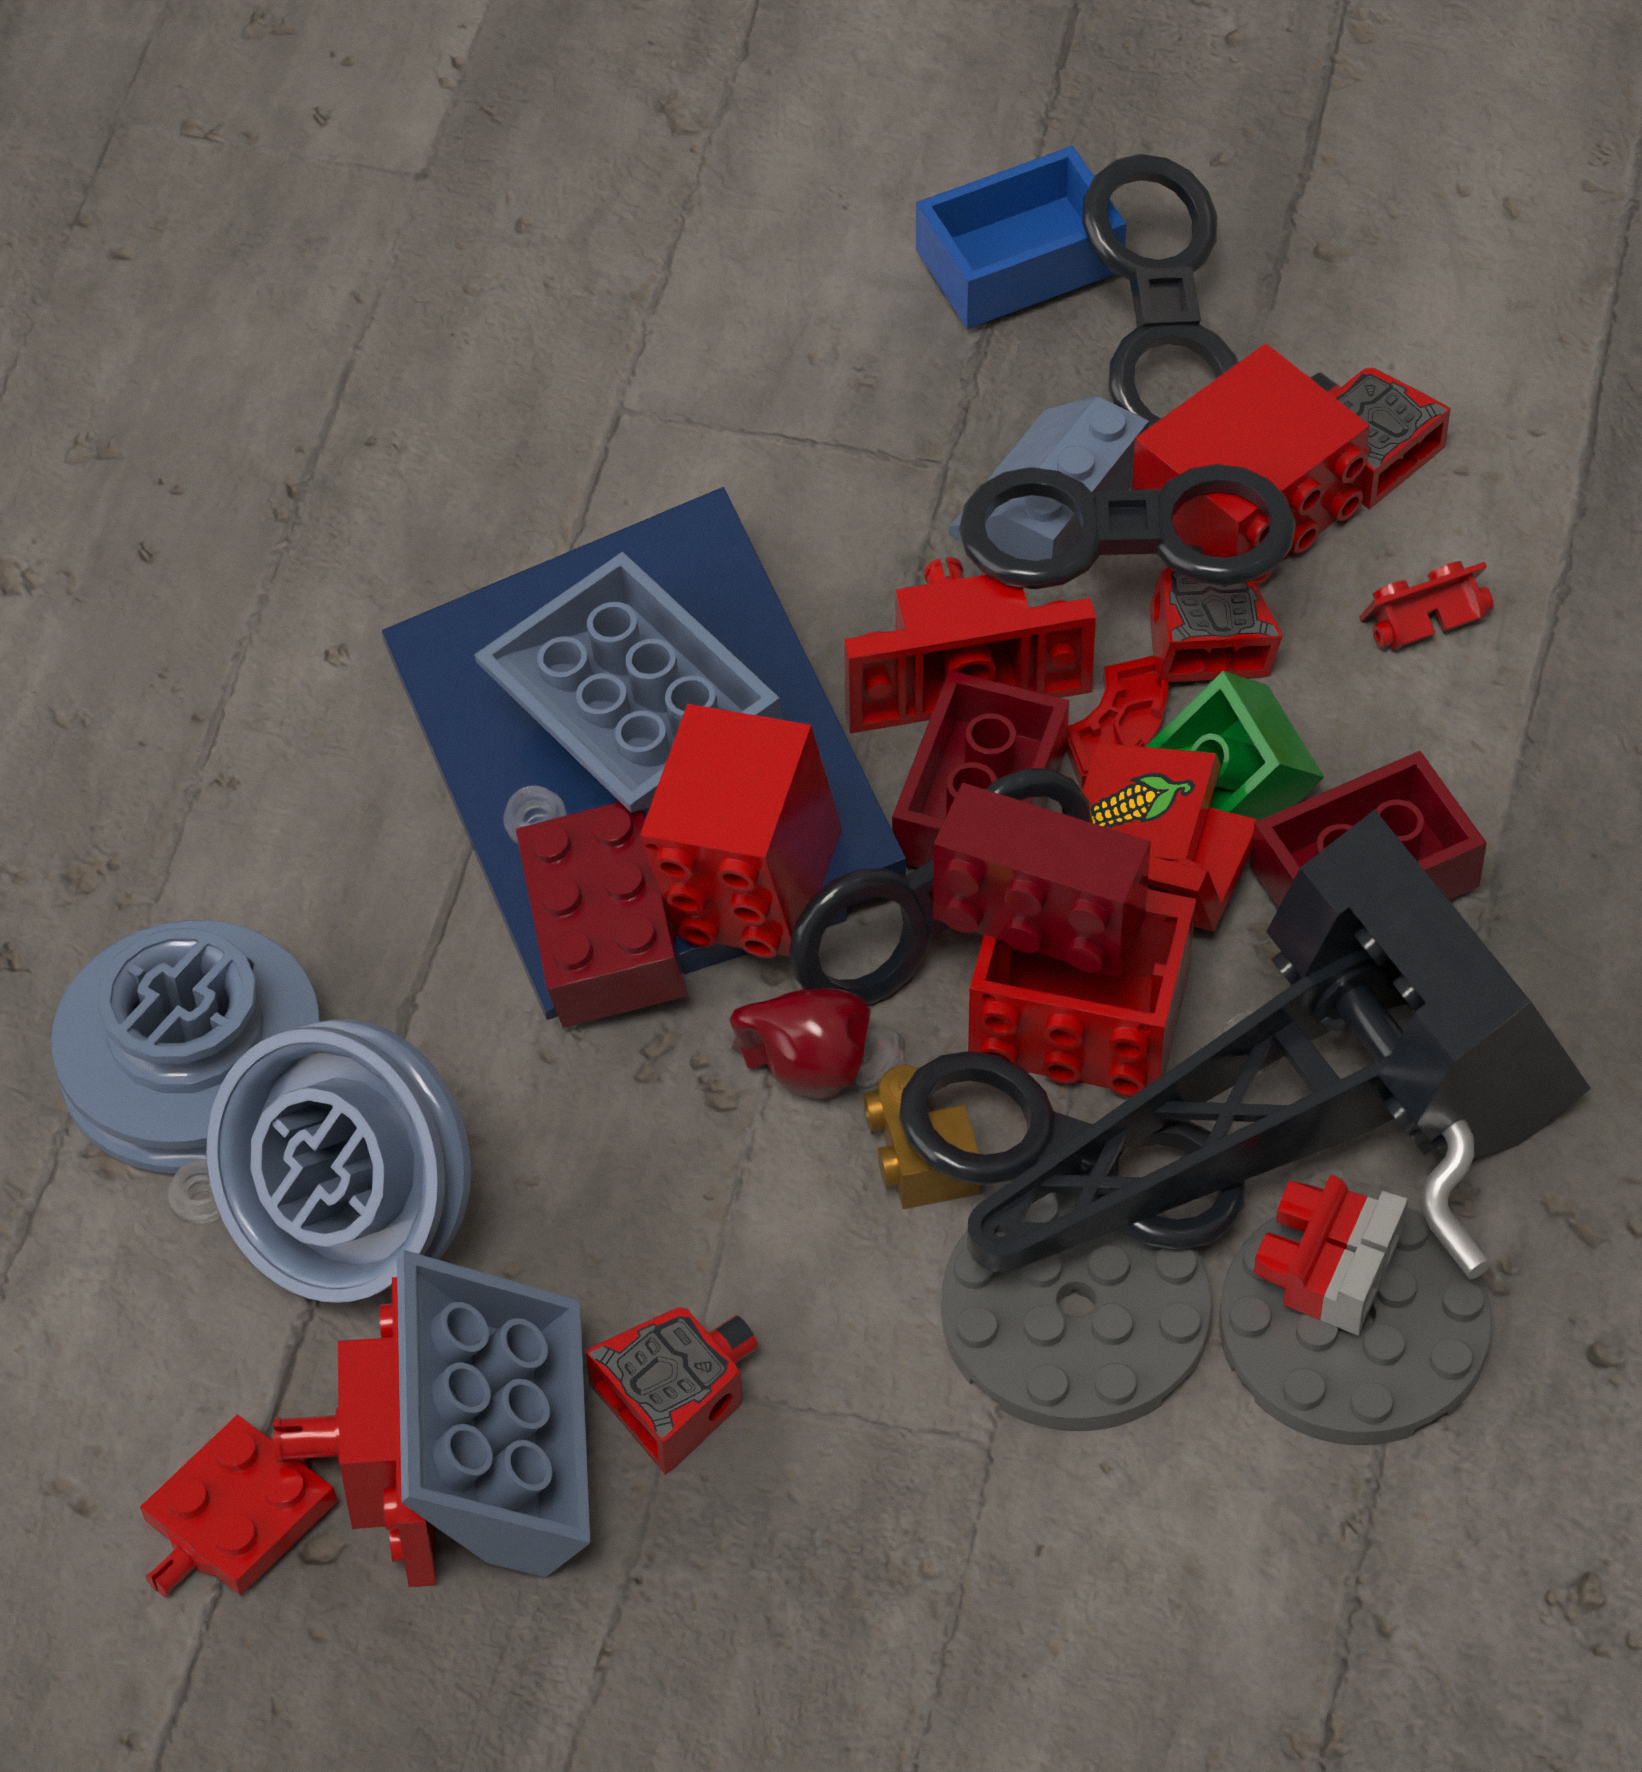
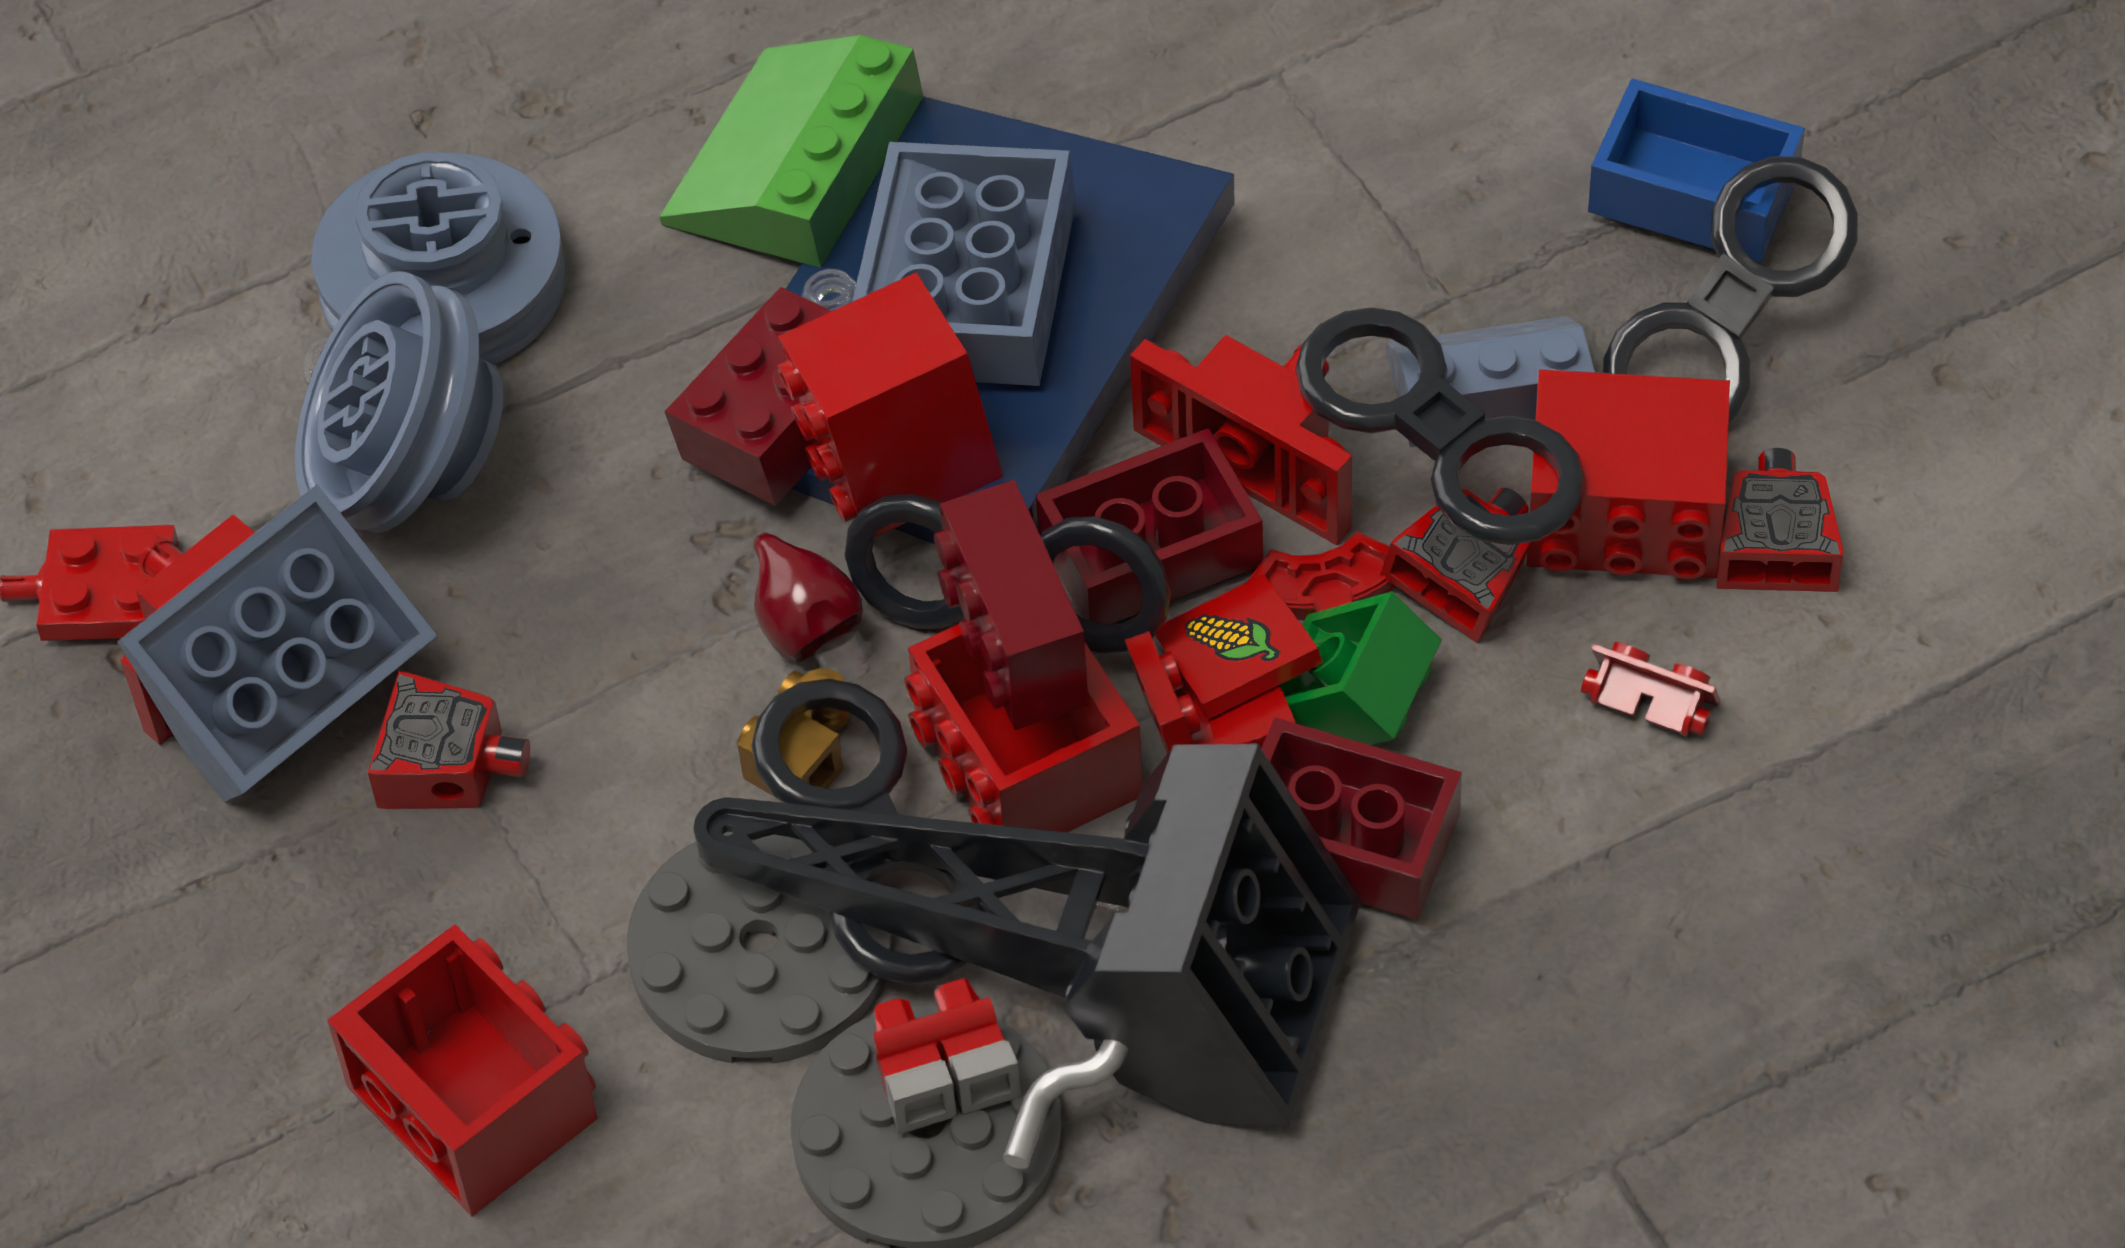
camera: 50 degrees right, 0 degrees up
(350, 735) = (799, 147): none -> bright green slope
(1022, 1575) = (465, 1068): none -> red container

